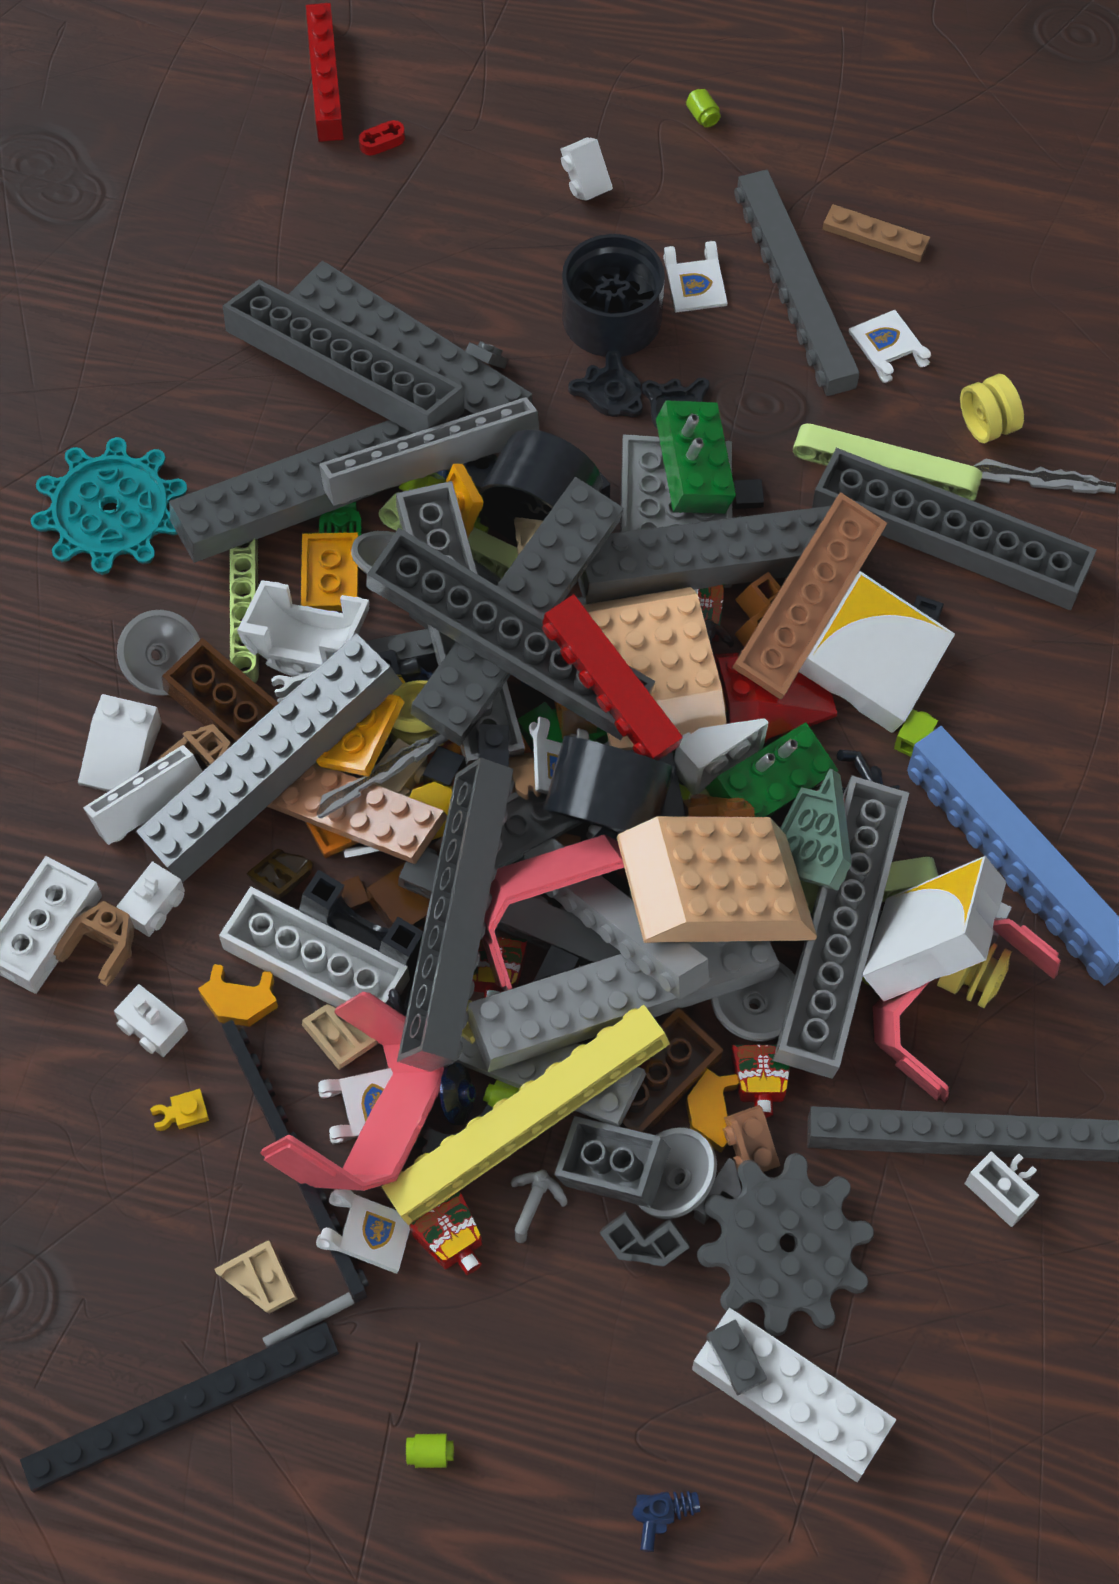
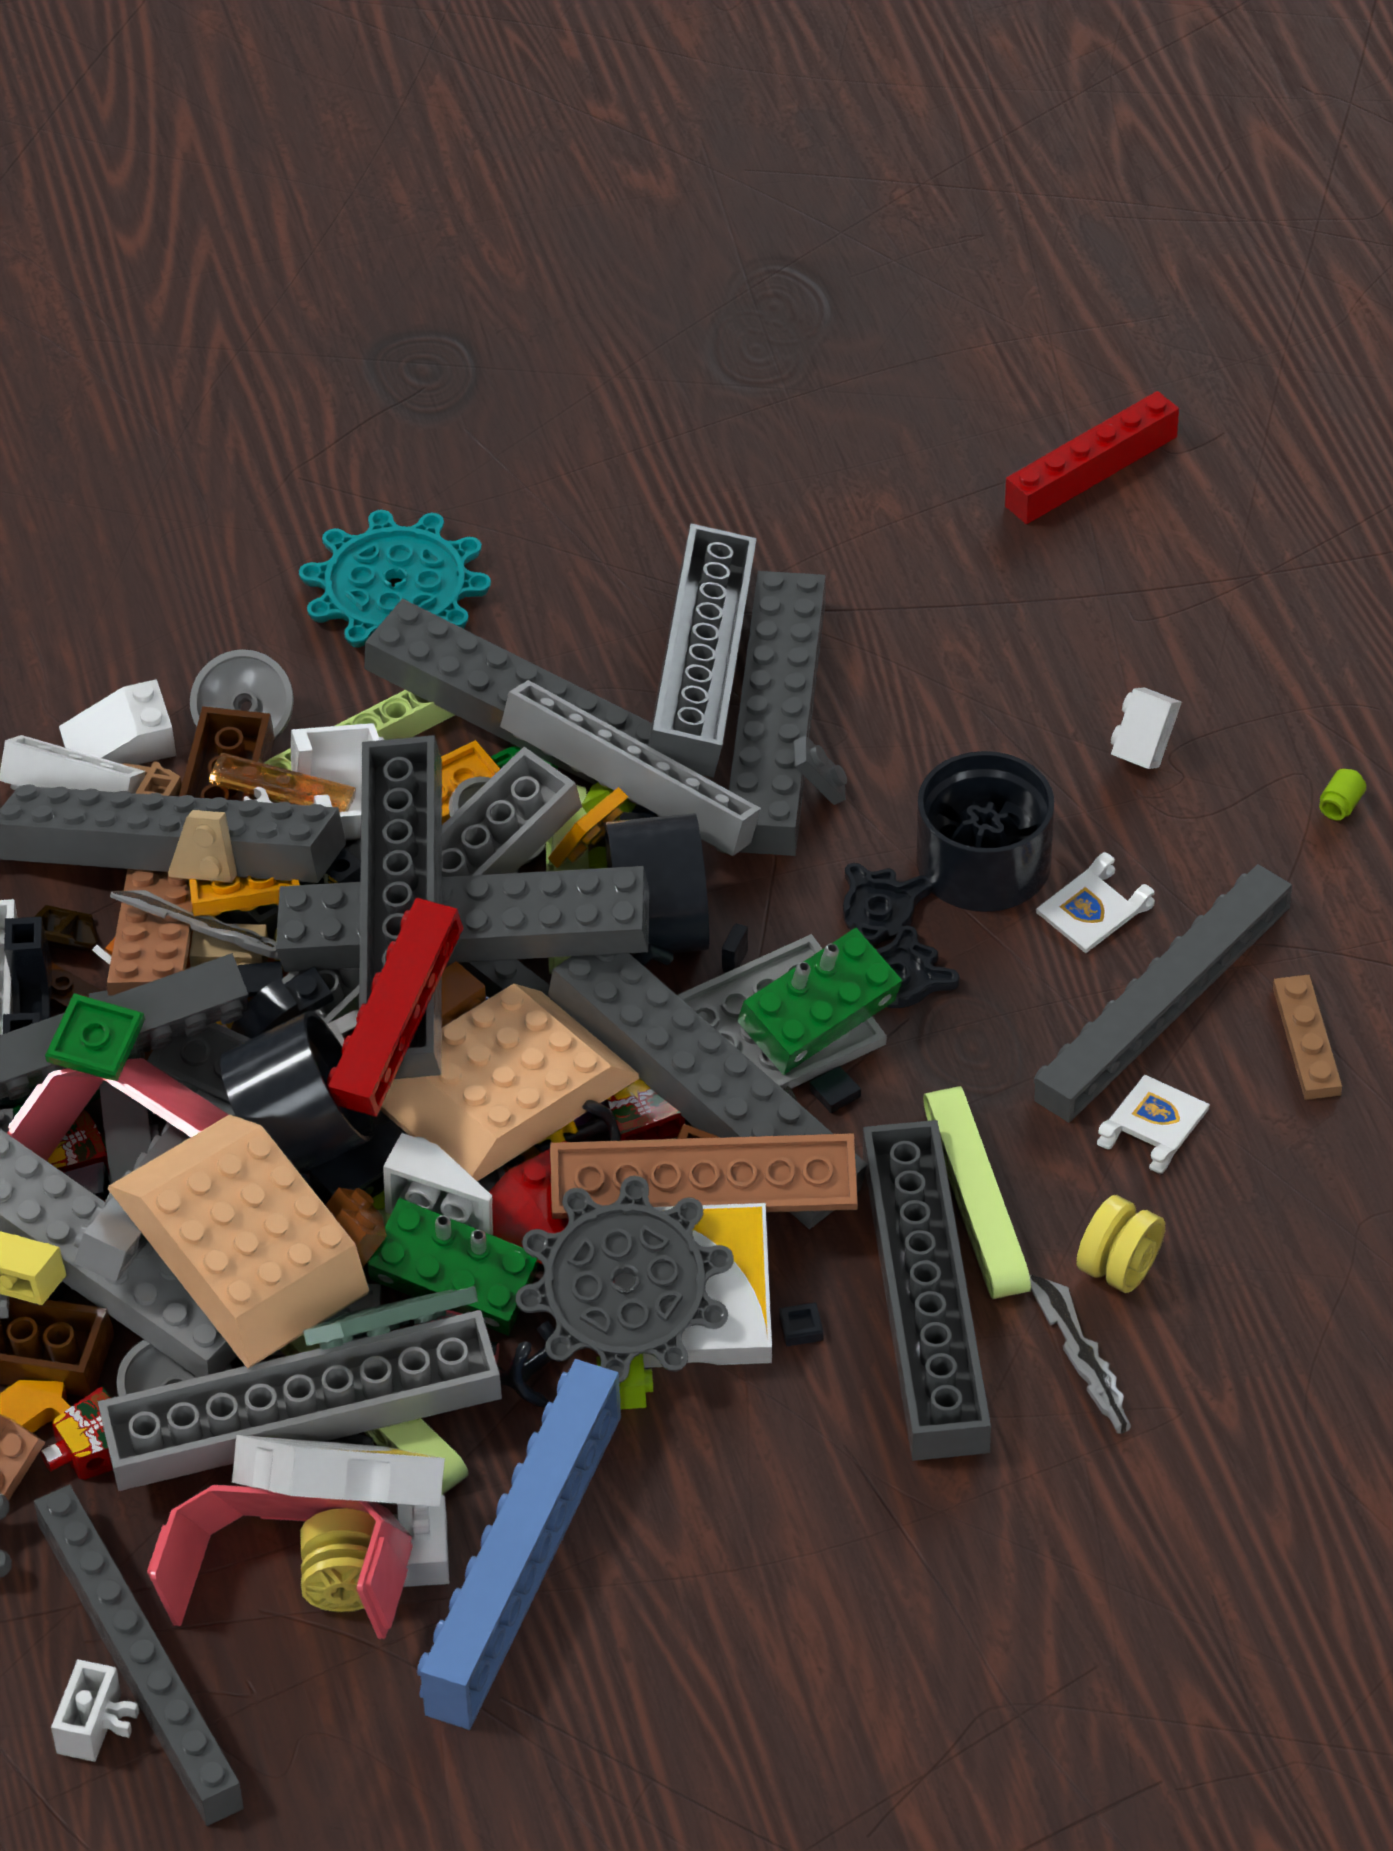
camera: 60 degrees right, 15 degrees down
(275, 662) = (279, 783): none -> clear orange tile
(325, 736) = (204, 849): none -> tan wing
(381, 137) = (1052, 550): red beam -> none
(492, 883) = (95, 1037): none -> green tile
(887, 659) = (631, 1240): none -> dark grey plate

